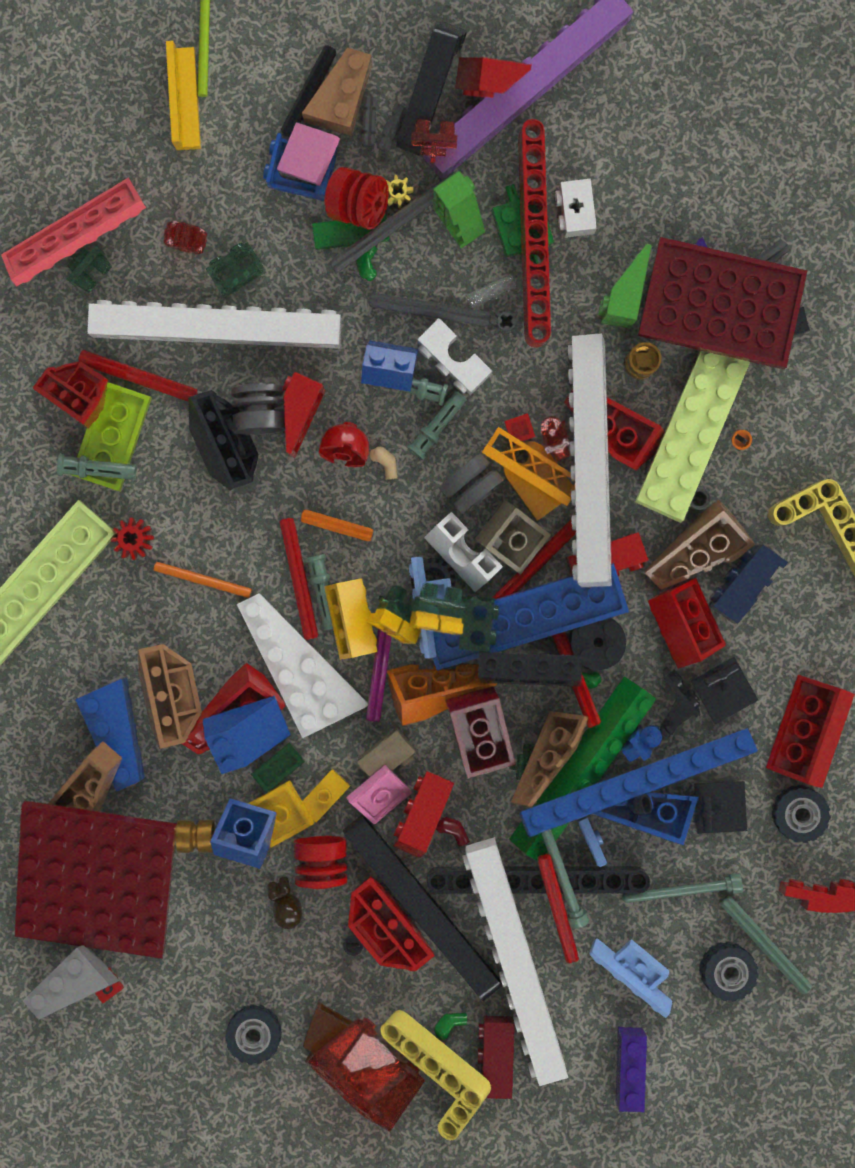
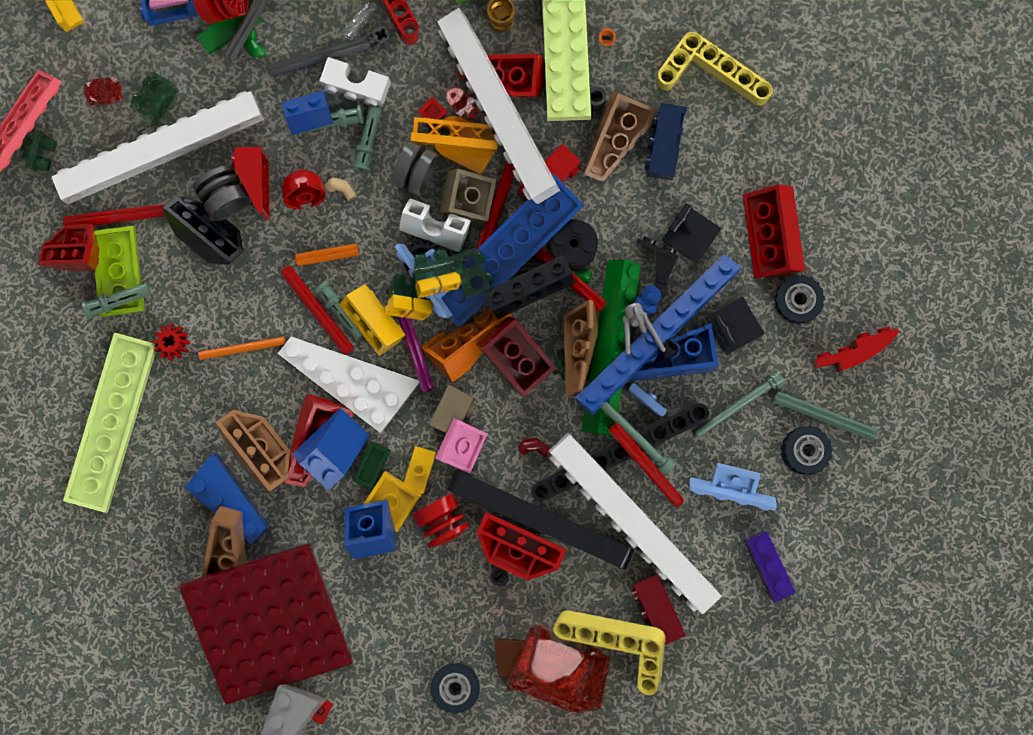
camera: 20 degrees left, 5 degrees down
(194, 836) = (329, 552): pearl gold wheel -> none
(286, 907) = (431, 572): dark brown piece -> none
(422, 814) = (503, 445): red wedge -> none
(447, 1023) = (606, 601): green arm -> none
(625, 756) = (637, 317): none -> light grey plant
(686, 623) = (635, 196): red slope -> none

